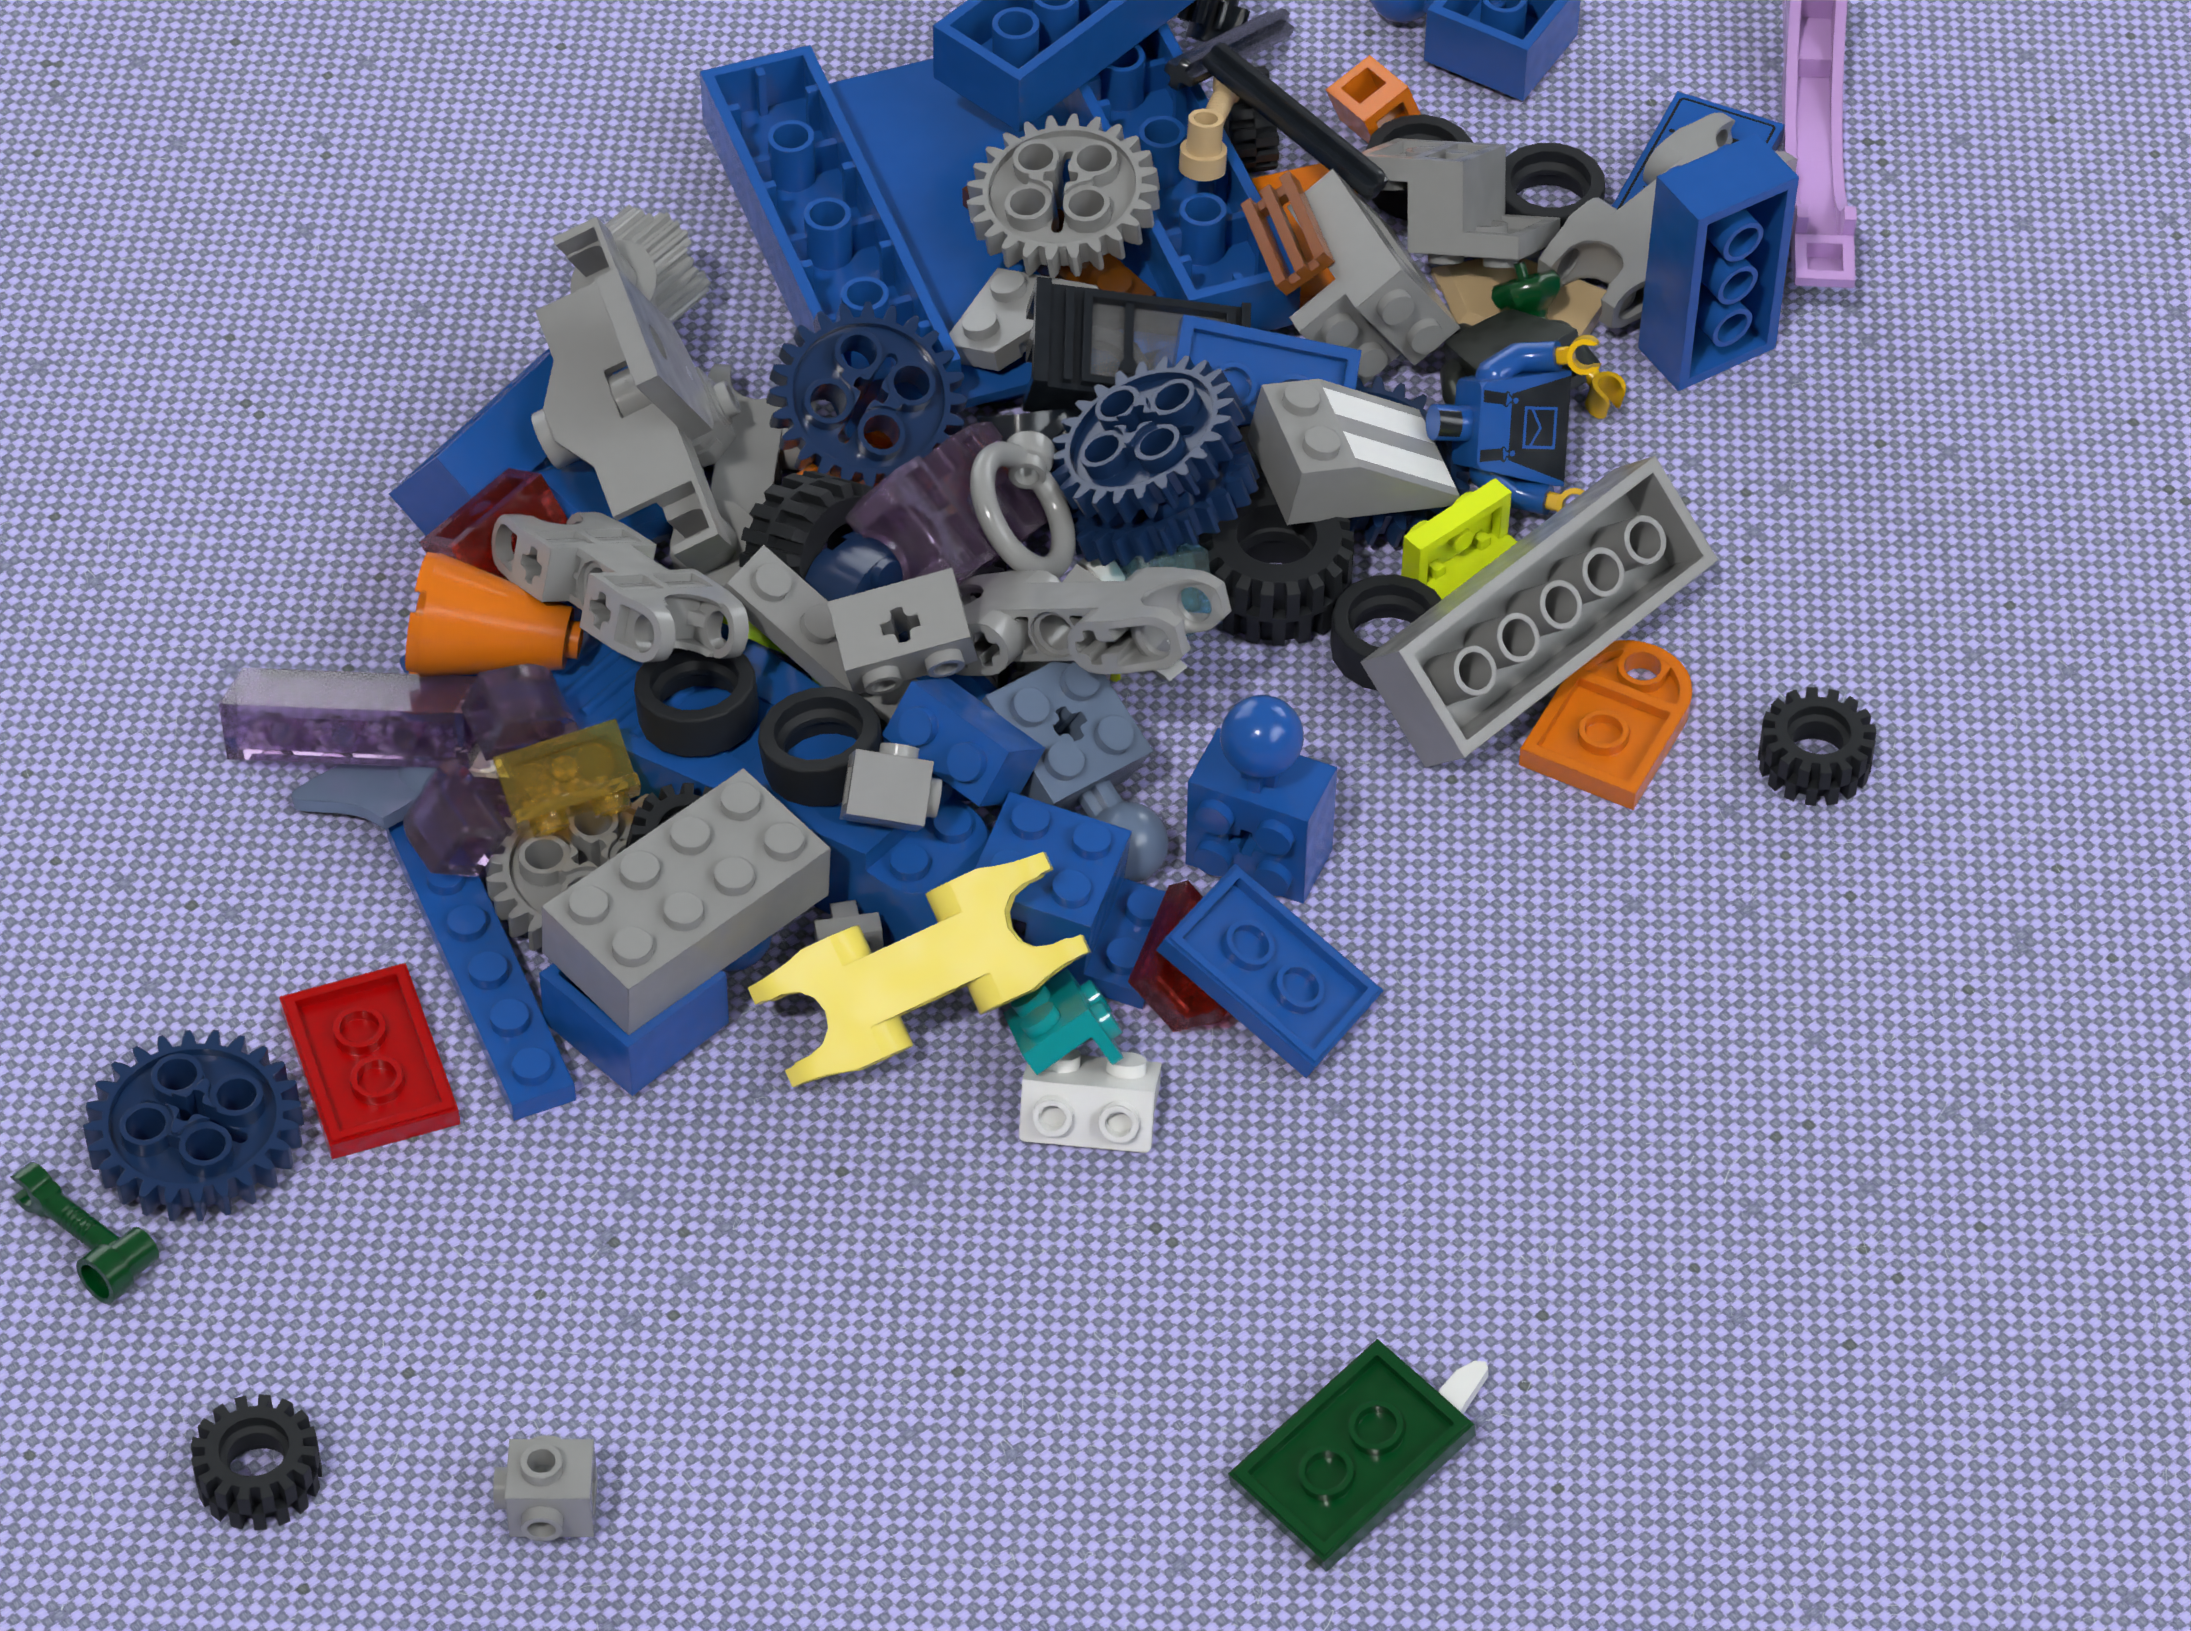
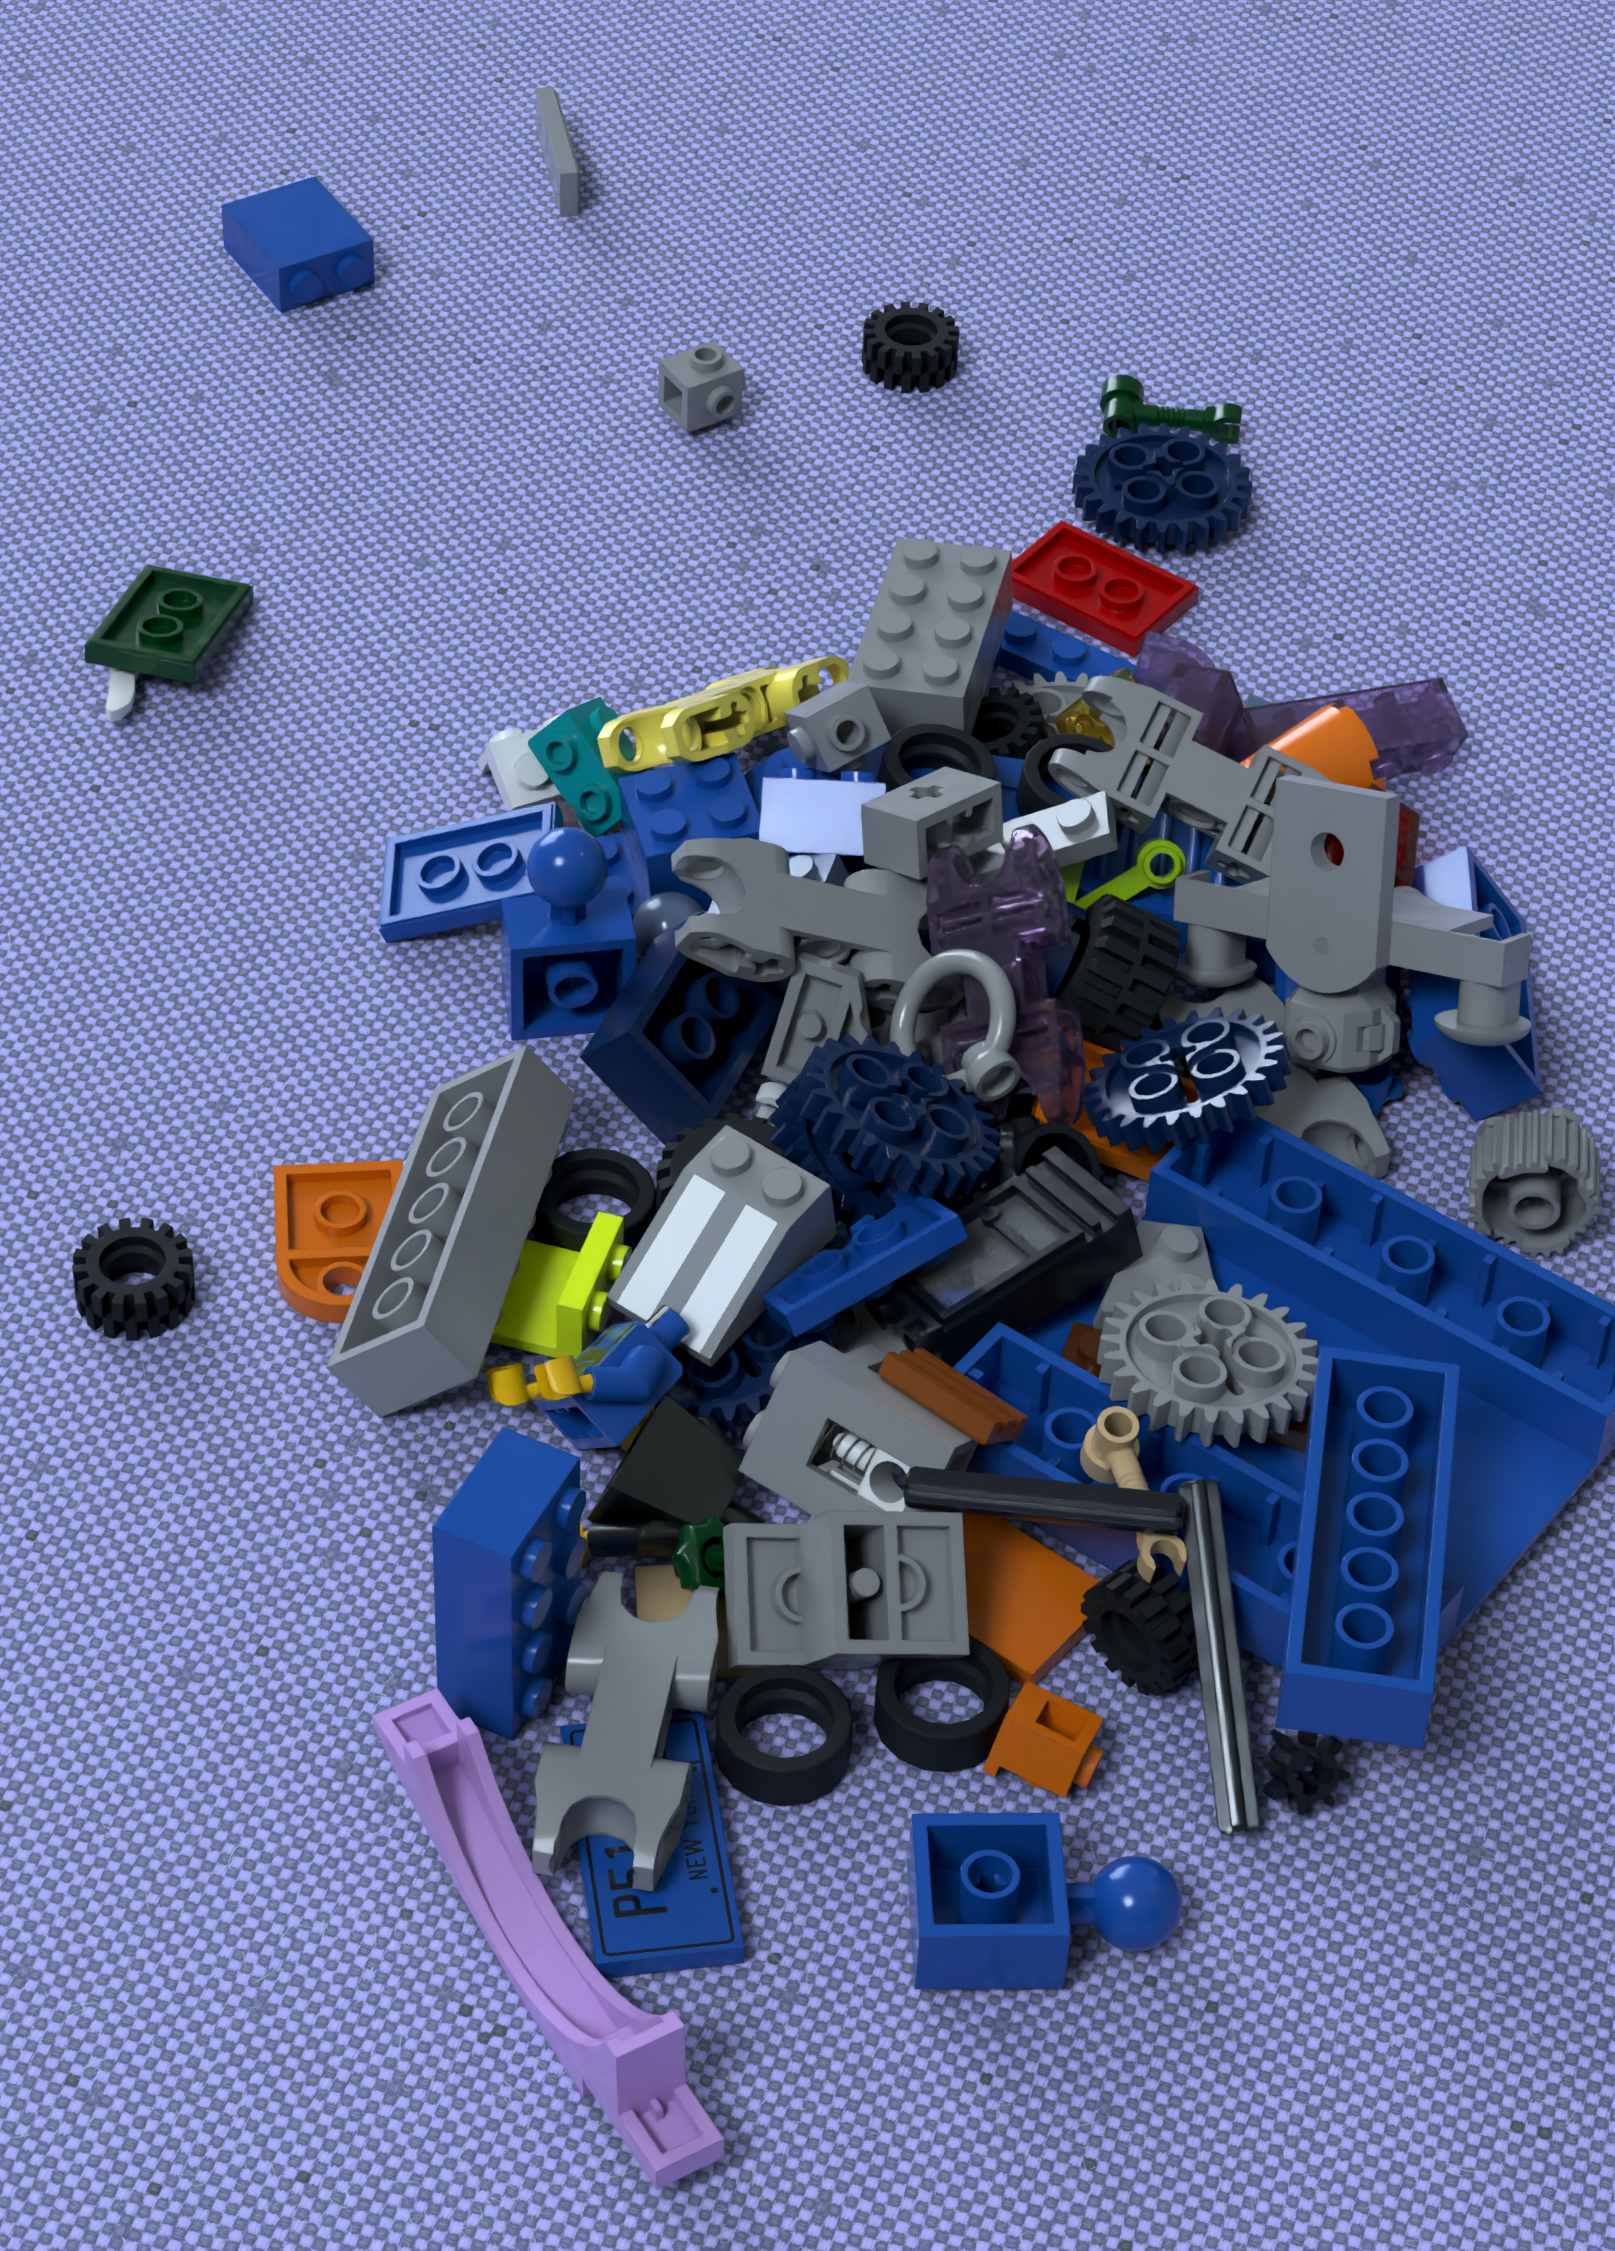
camera: 145 degrees right, 5 degrees down
(1189, 700) = (679, 1038): none -> dark blue brick

